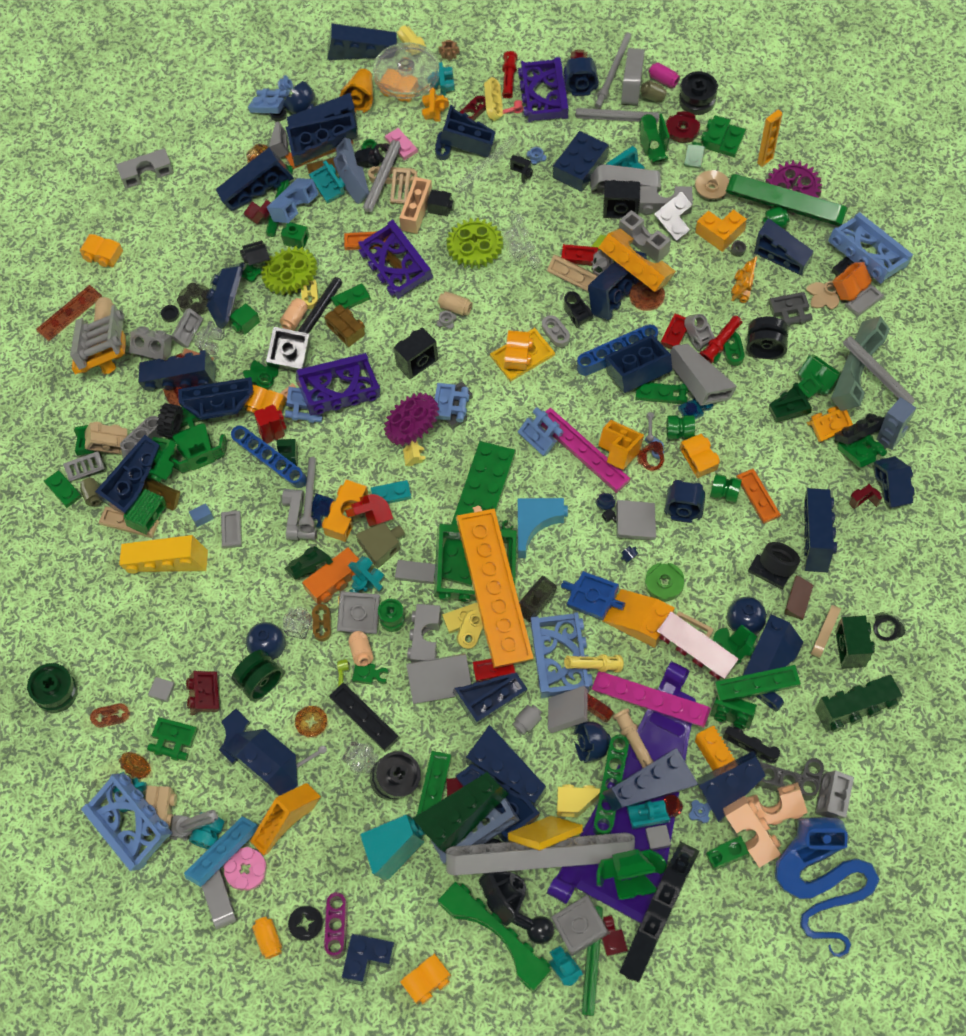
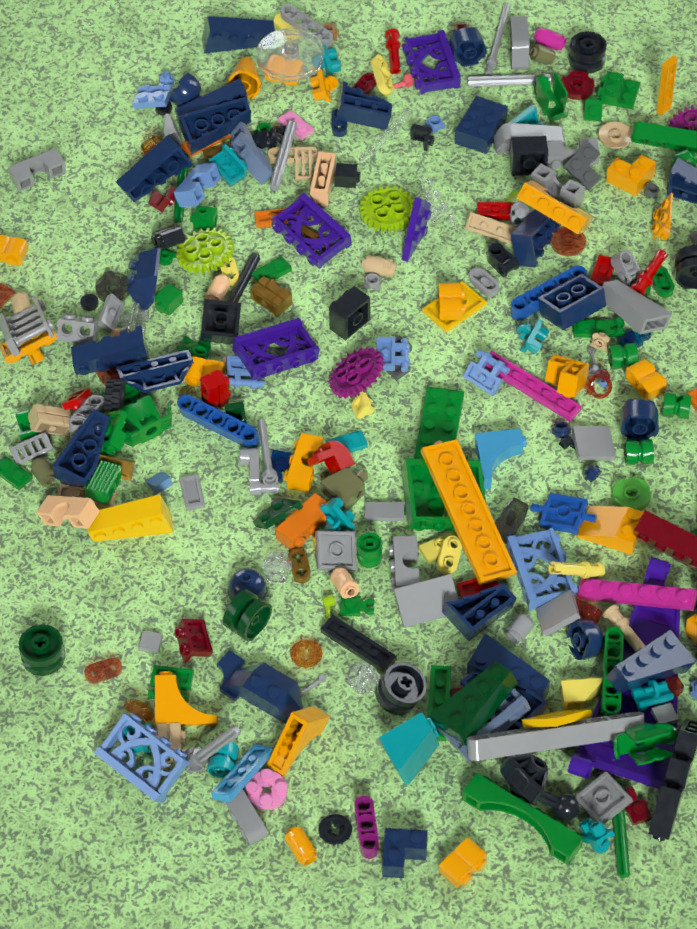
camera: 10 degrees left, 10 degrees down
(106, 539) = (77, 510): none -> light nougat arch
(135, 418) = (76, 399): none -> red plate
(167, 768) = (171, 706): none -> light orange arch
(440, 50) = (289, 11): none -> light grey beam
(497, 267) = (417, 227): none -> dark purple wing
(599, 390) = (537, 331): none -> teal hips
(660, 408) = (600, 337): none -> tan plate
(679, 536) = (638, 452): none -> green wheel

